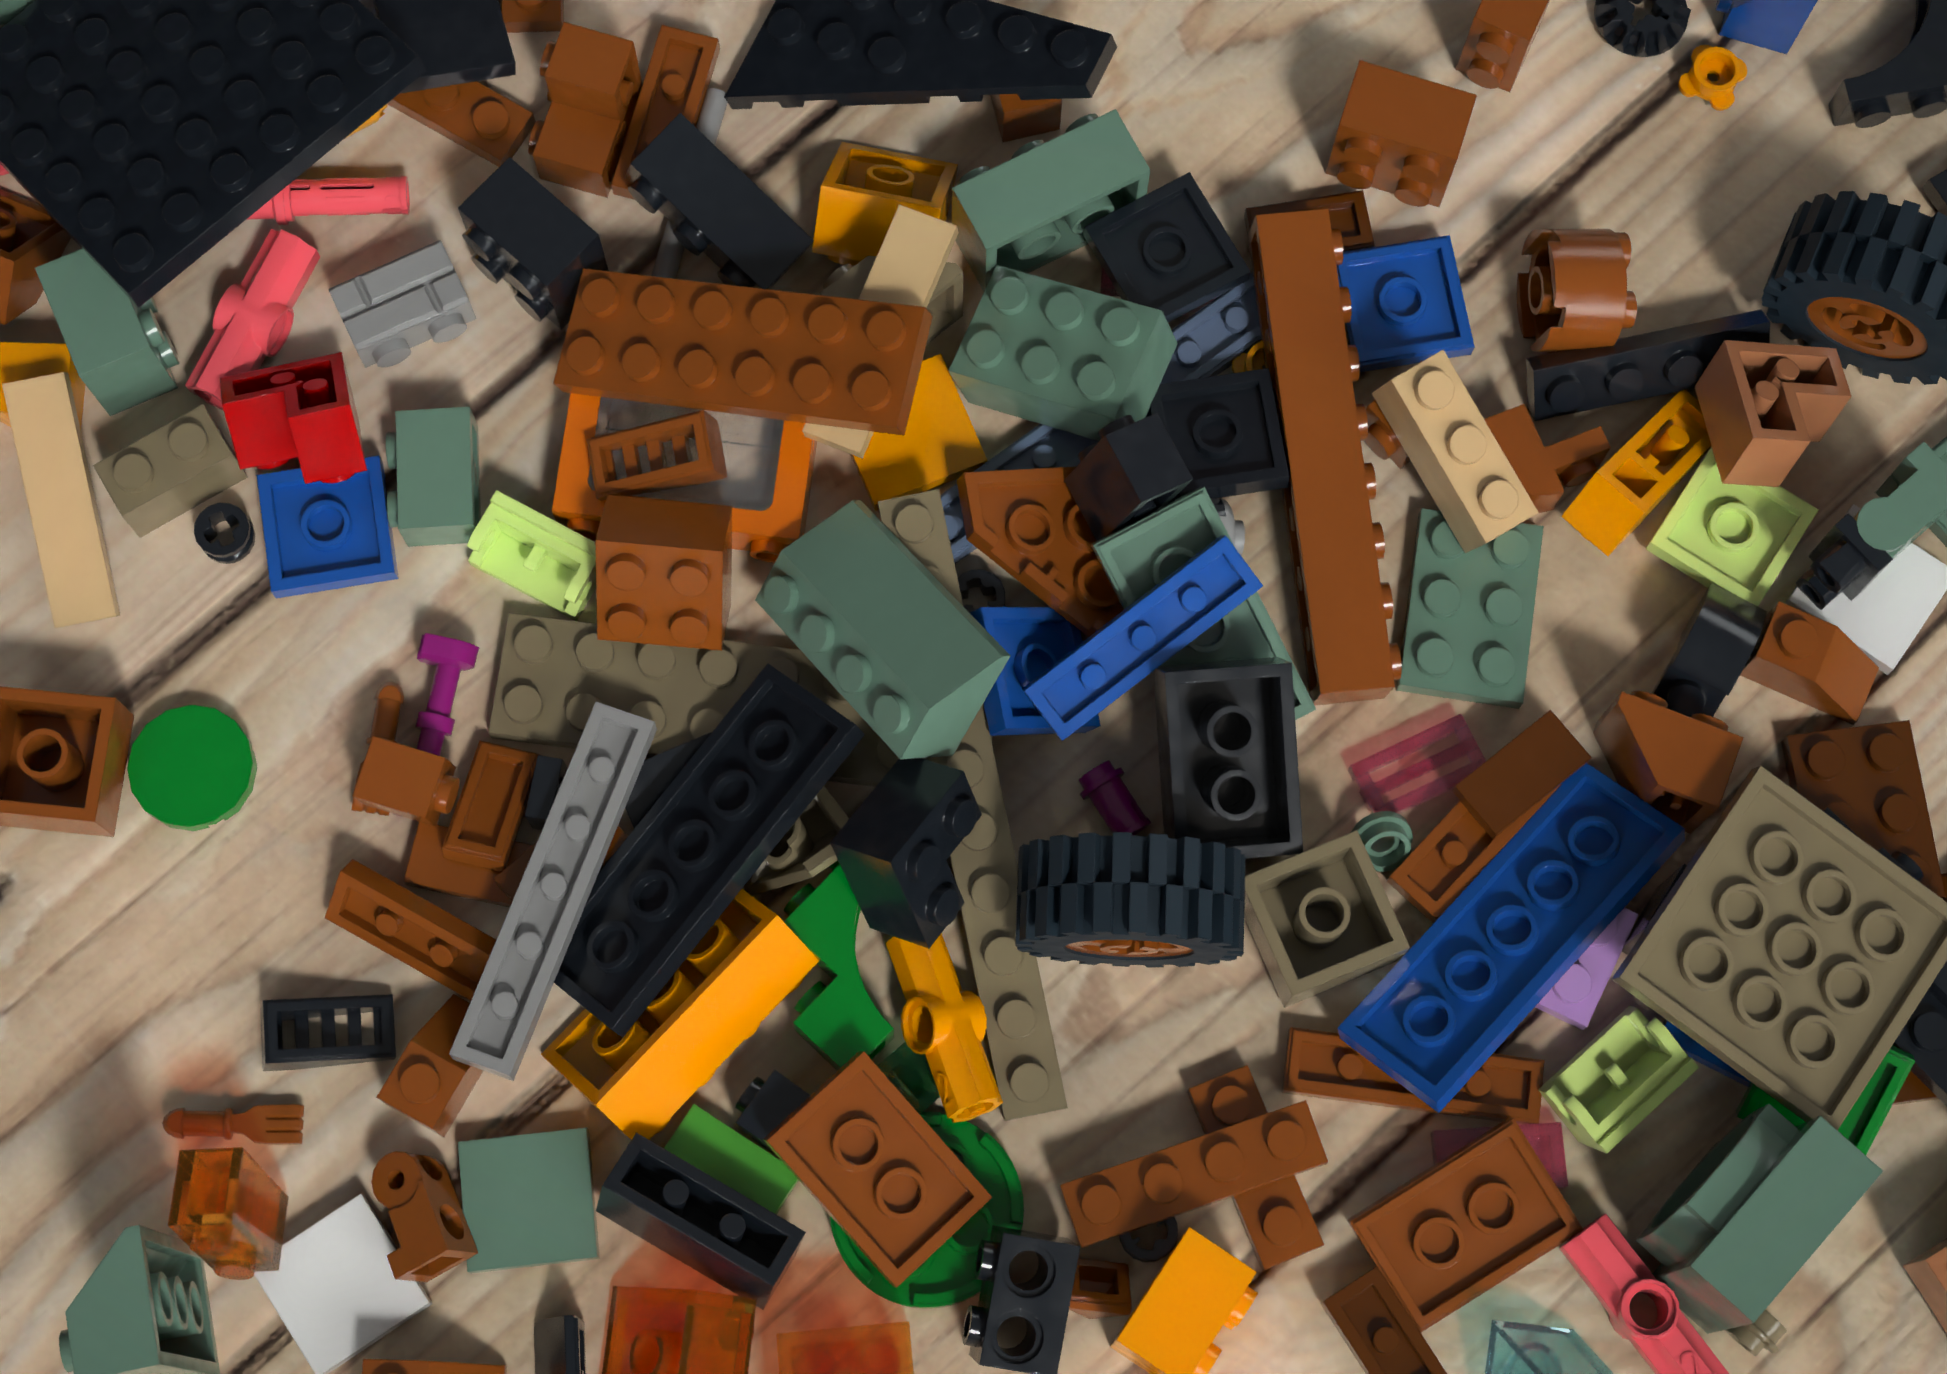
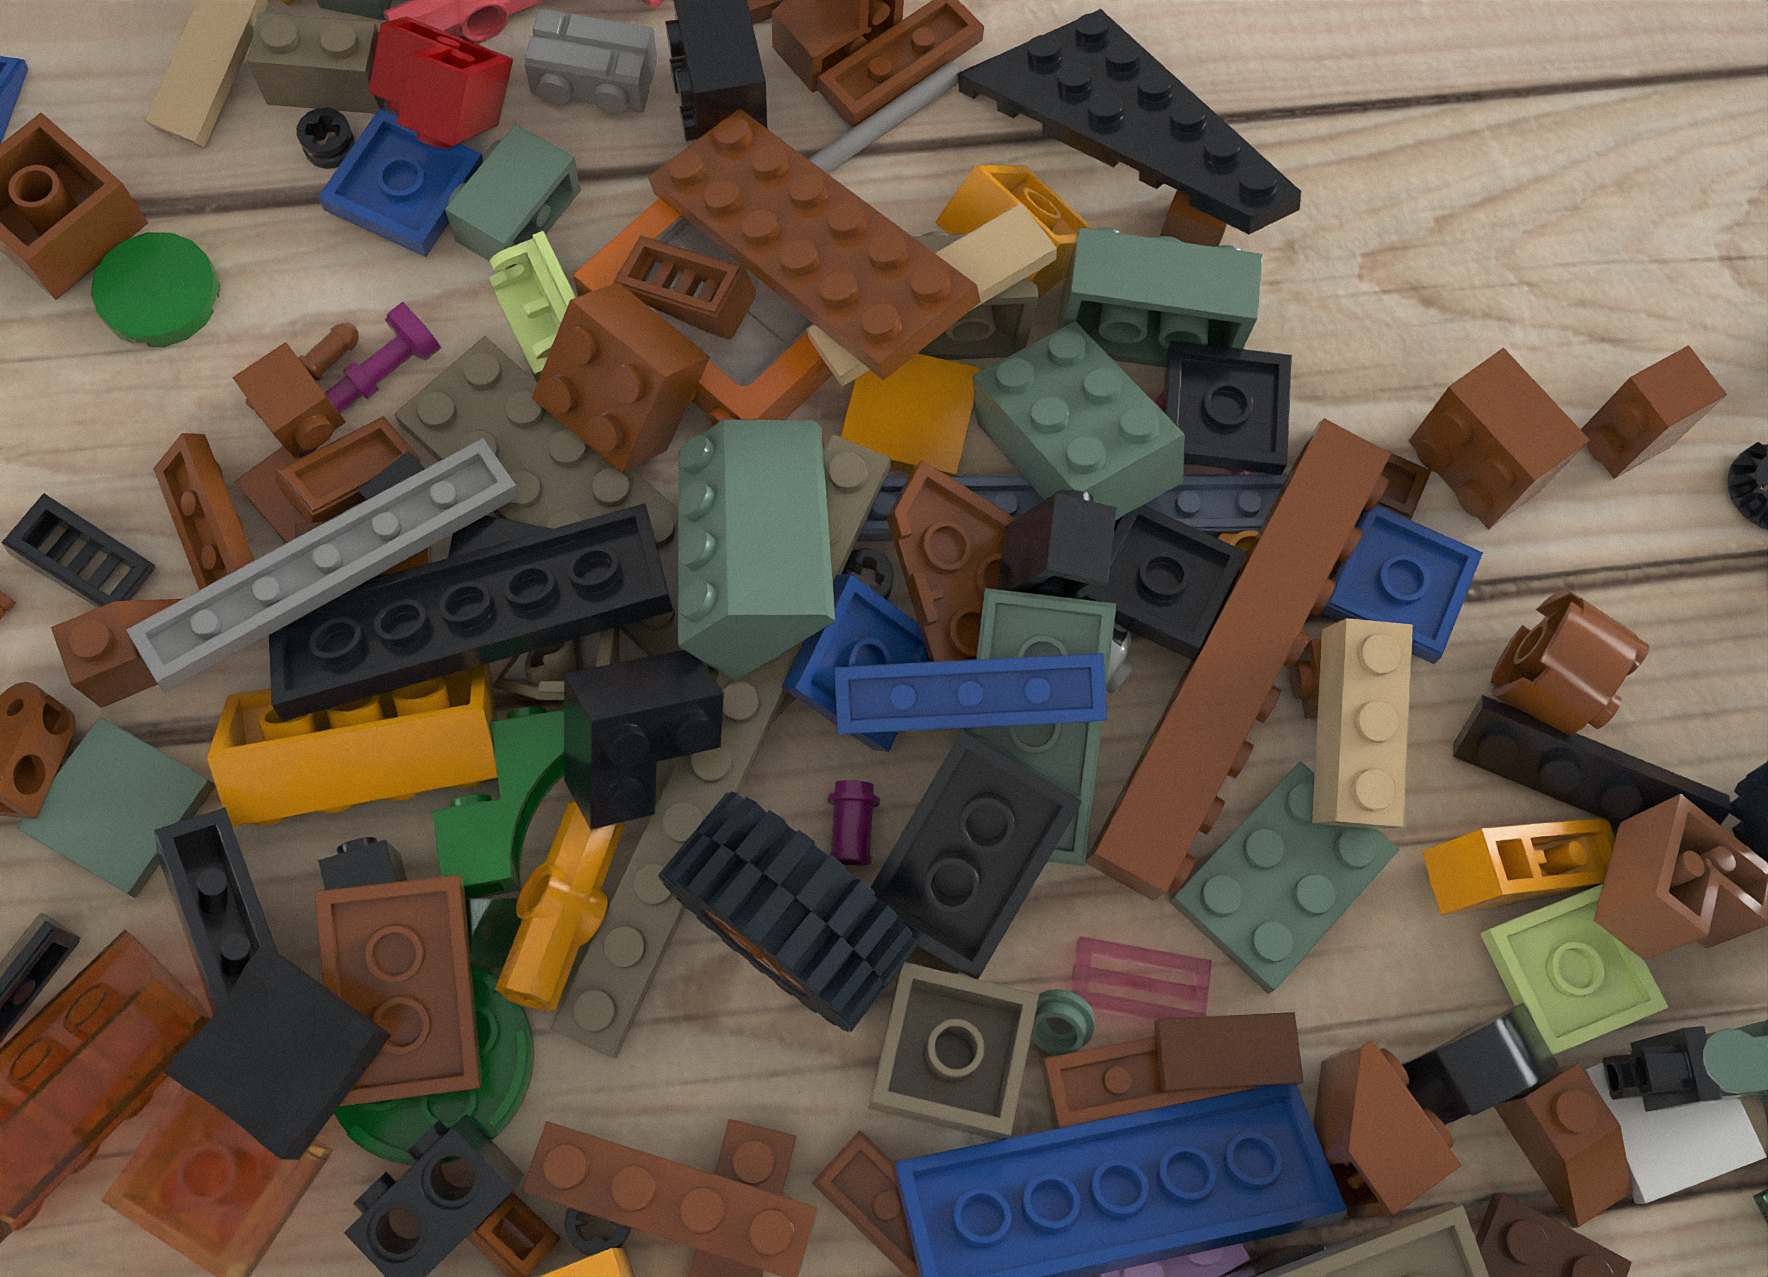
camera: 30 degrees right, 5 degrees down
(715, 207) = (884, 134): black brick -> none
(732, 1159) = (286, 881): bright green tile -> none
(840, 1270) = (279, 1054): none -> black brick
(1545, 467) = (1435, 799): dark orange brick -> none

